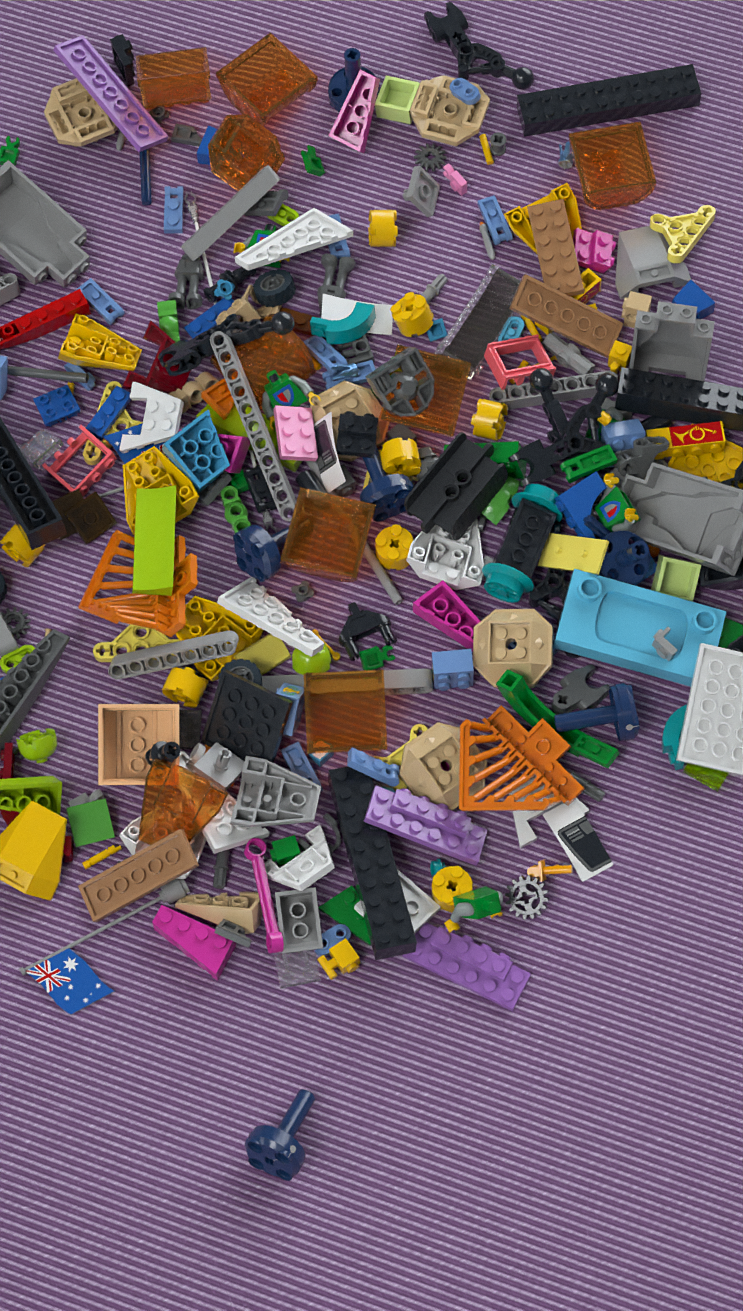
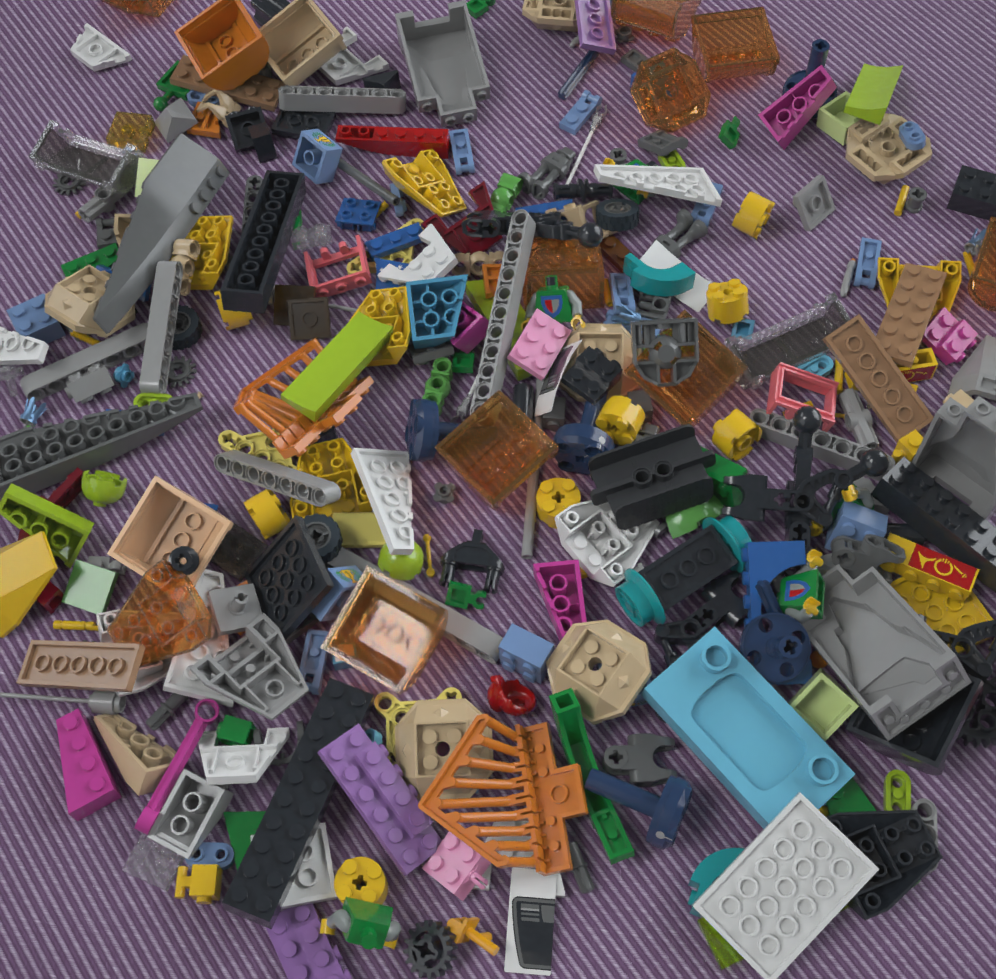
camera: 35 degrees right, 5 degrees down
(197, 753) = (231, 582): white tile -> none
(224, 284) = (576, 192): dark azure plate -> none
(230, 212) = (622, 132): light grey beam -> none
(233, 932) = (116, 782): dark grey tile -> none
(236, 237) = (615, 155): none -> dark grey bush
(259, 489) = (469, 376): black plate -> none
(373, 767) = (373, 703): medium blue plate -> none
(408, 65) = (872, 92): none -> lime arch
(431, 164) = (852, 181): dark grey gear -> none
(433, 288) = (765, 292): light grey axle -> none
(435, 866) = (366, 850): teal plate -> none
(452, 29) = (935, 89): black piece -> none
(457, 182) = (853, 213): bright pink plate -> none
(461, 706) = (510, 696): none -> red hair
(506, 834) = (457, 866): none -> bright pink plate
(571, 177) = (968, 261): none -> yellow piece
(573, 553) = (727, 611): light yellow piece -> none
(589, 463) = (804, 529): green plate -> none
(663, 646) = (755, 771): light grey bracket -> none

